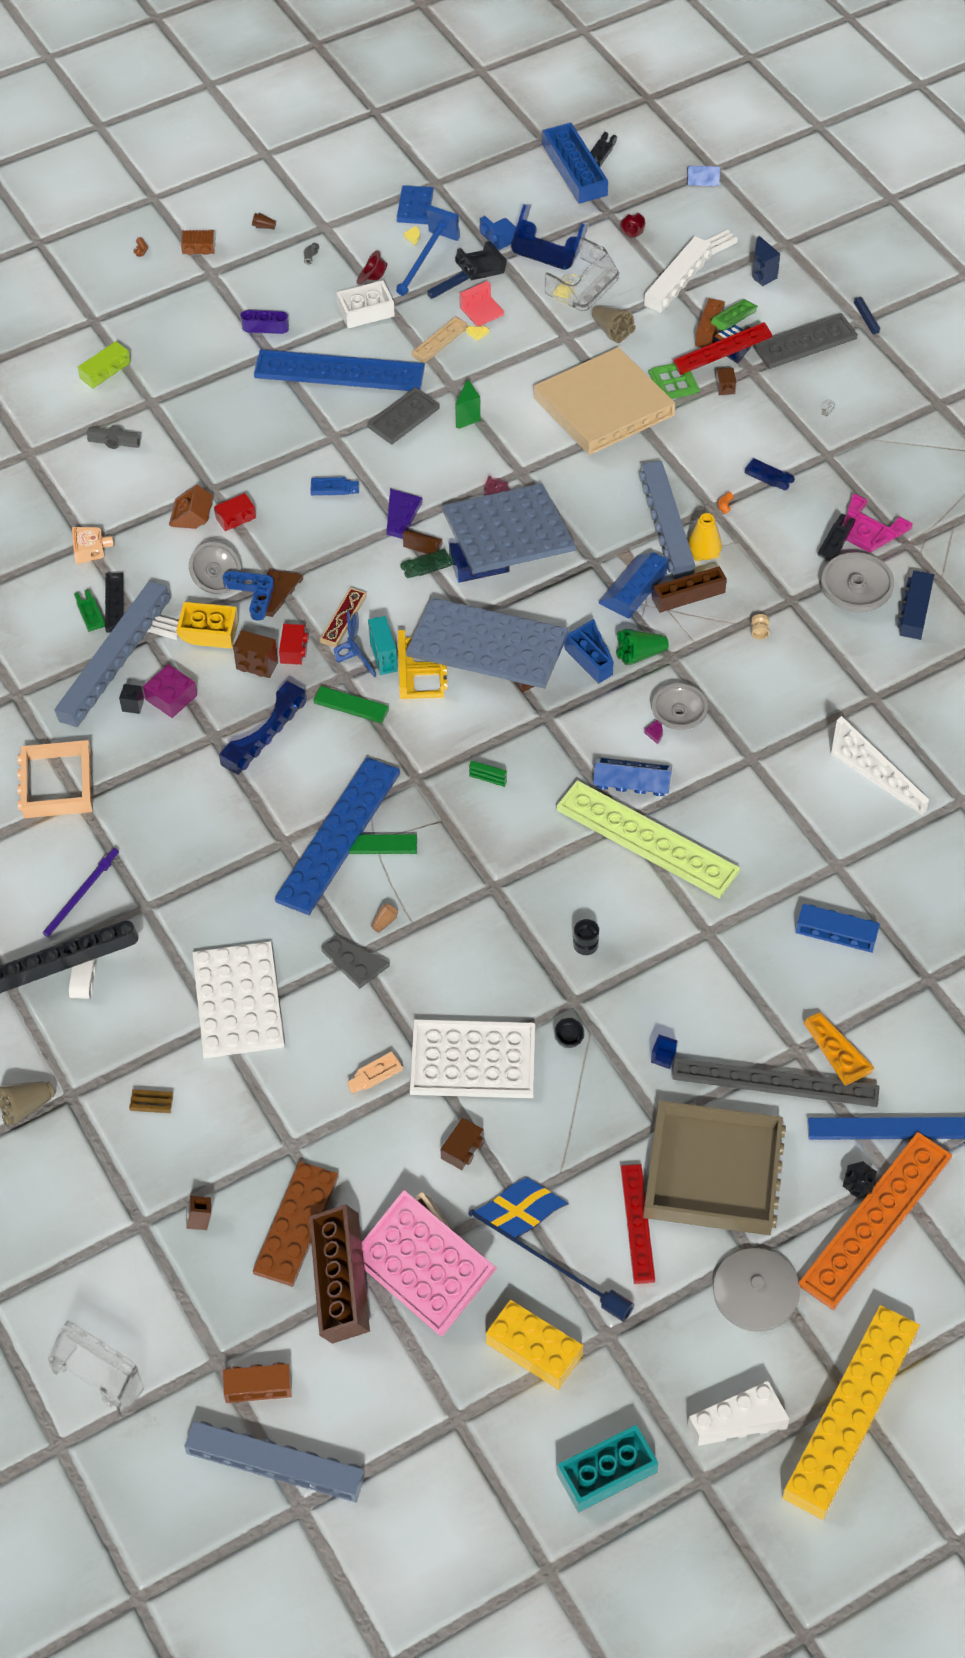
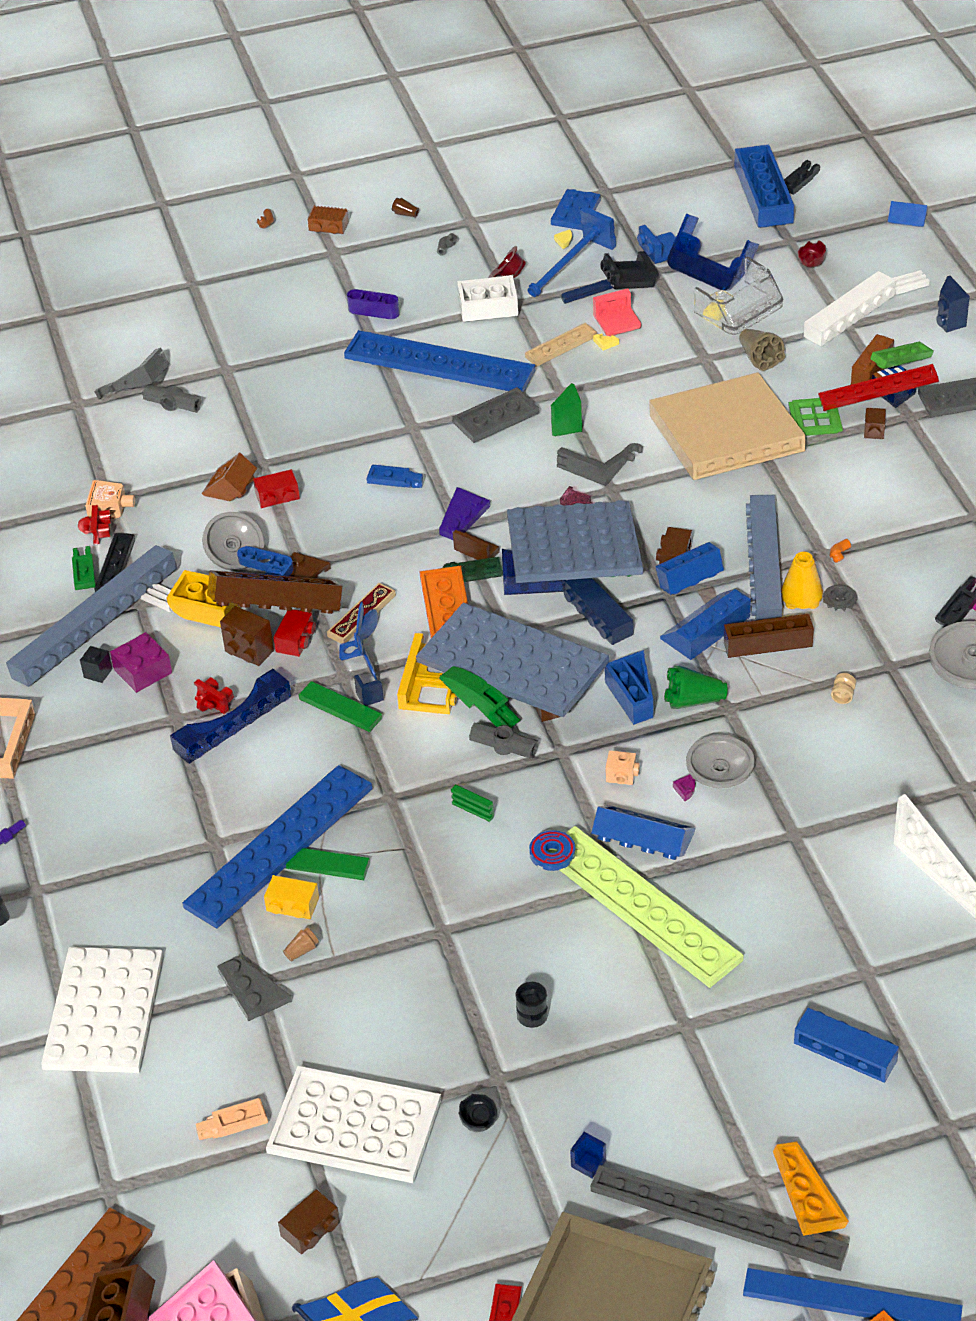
camera: 15 degrees right, 10 degrees down
(80, 422) = (140, 376): none -> dark grey hinge
(88, 561) = (97, 524): none -> red hips
(104, 364) = (186, 326): lime brick -> none
(239, 713) = (209, 696): none -> red hips
(270, 611) = (274, 590): none -> reddish brown brick
(364, 879) = (291, 897): none -> yellow brick
(372, 688) = (370, 692): none -> dark blue panel
(382, 645) = (392, 646): teal window -> none
(410, 594) = (442, 594): none -> orange tile
(466, 676) = (476, 691): none -> green slope
(497, 714) = (503, 740): none -> dark grey piece
(499, 455) = (593, 469): none -> dark grey hinge
(544, 586) = (599, 609): none -> dark blue brick
(566, 795) = (552, 840): none -> blue tile
(591, 521) = (674, 543): none -> reddish brown brick
(601, 724) = (621, 767): none -> light nougat brick
(609, 537) = (689, 568): none -> blue brick
(734, 540) = (840, 591): none -> dark grey gear
(769, 474) = (900, 527): clear blue hinge -> none

